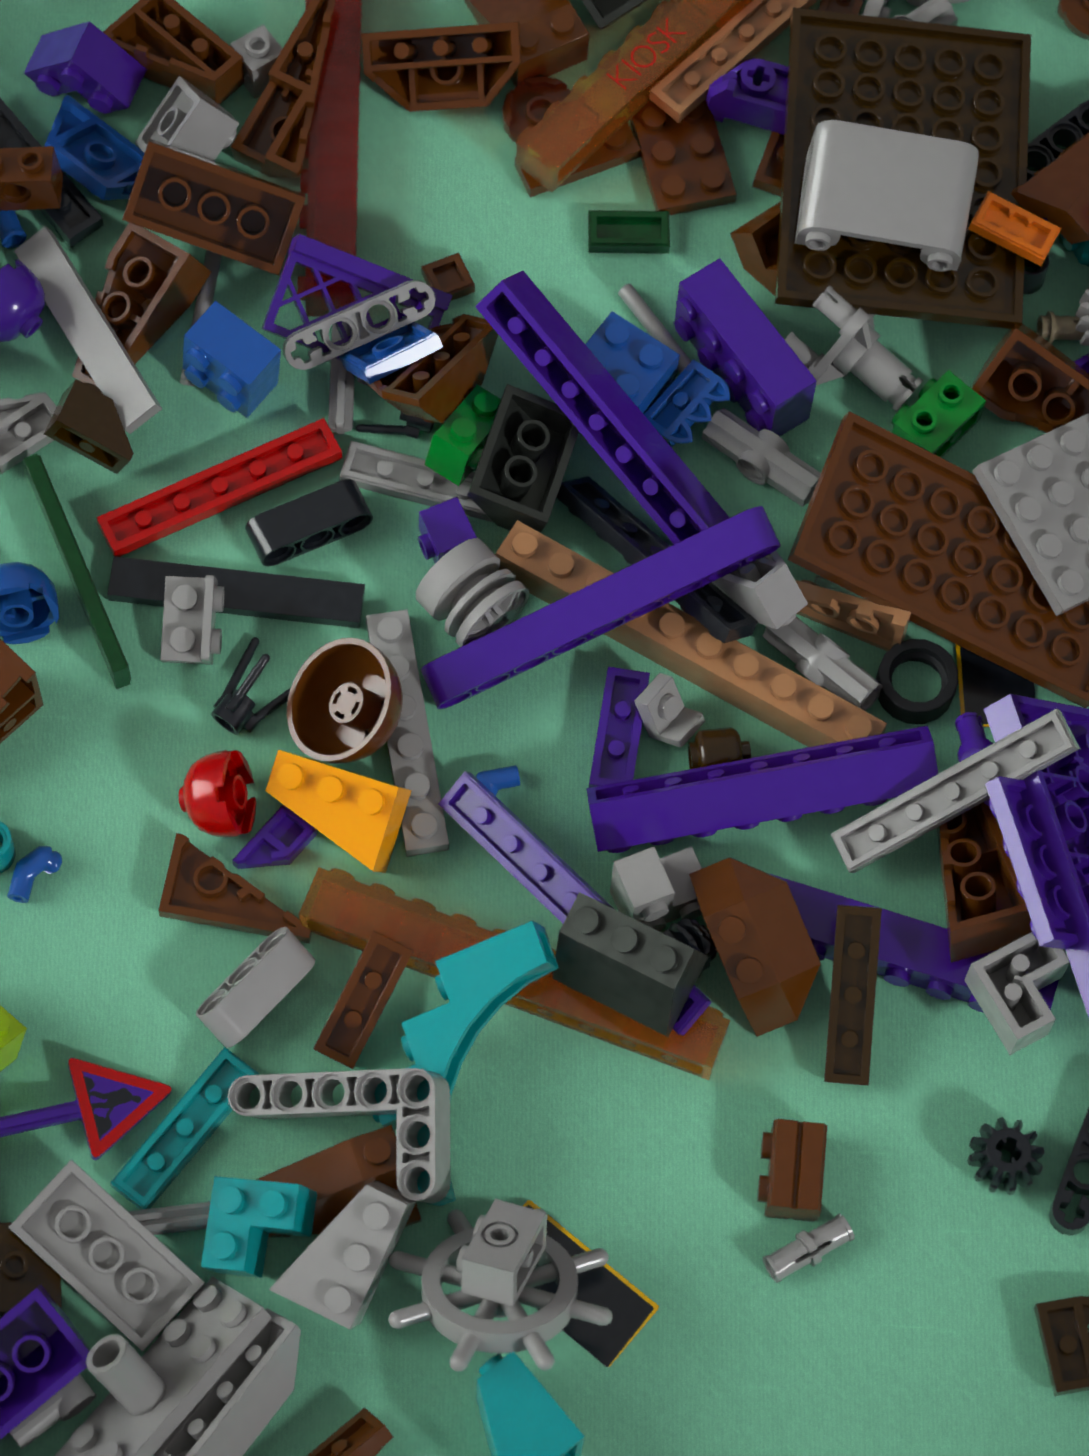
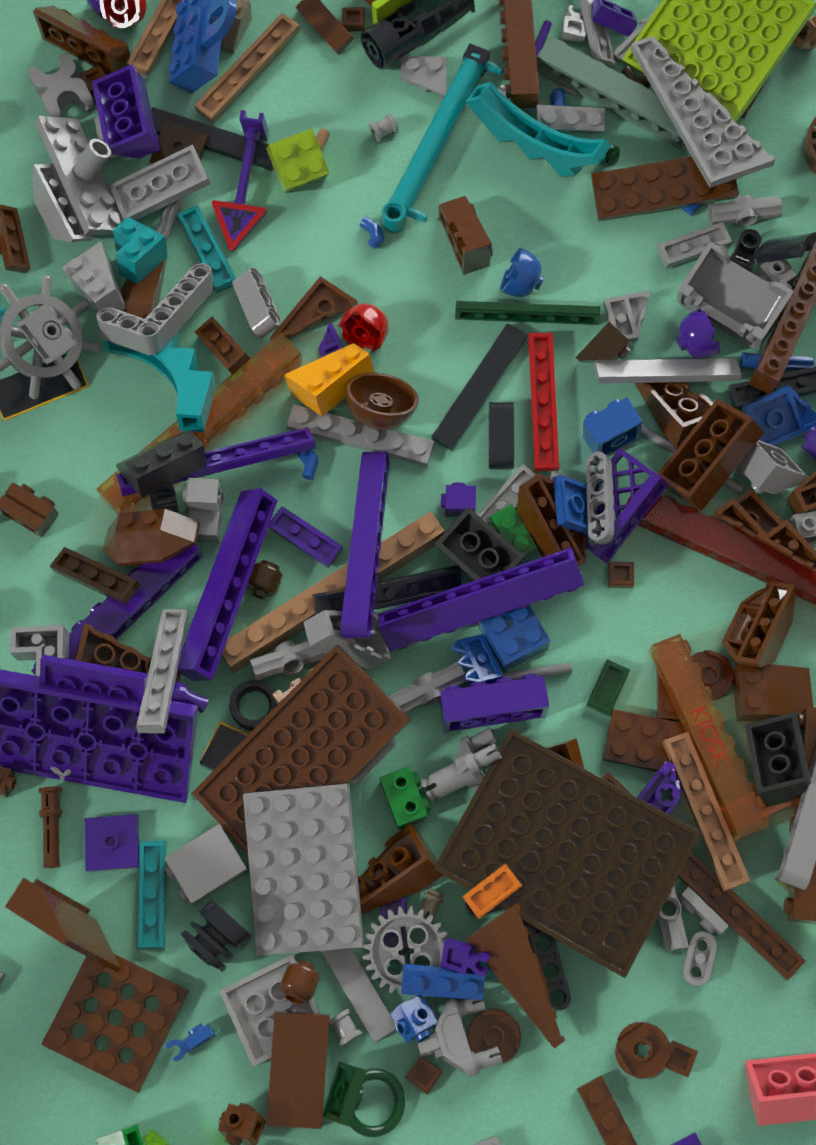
camera: 120 degrees right, 5 degrees up
(190, 620) = (471, 354): light grey bracket -> none
(234, 707) = (413, 357): black plant -> none
(471, 592) = (413, 490): light grey wheel -> none
(665, 713) = (299, 563): light grey bracket -> none
(887, 190) = (538, 815): light grey windscreen -> none

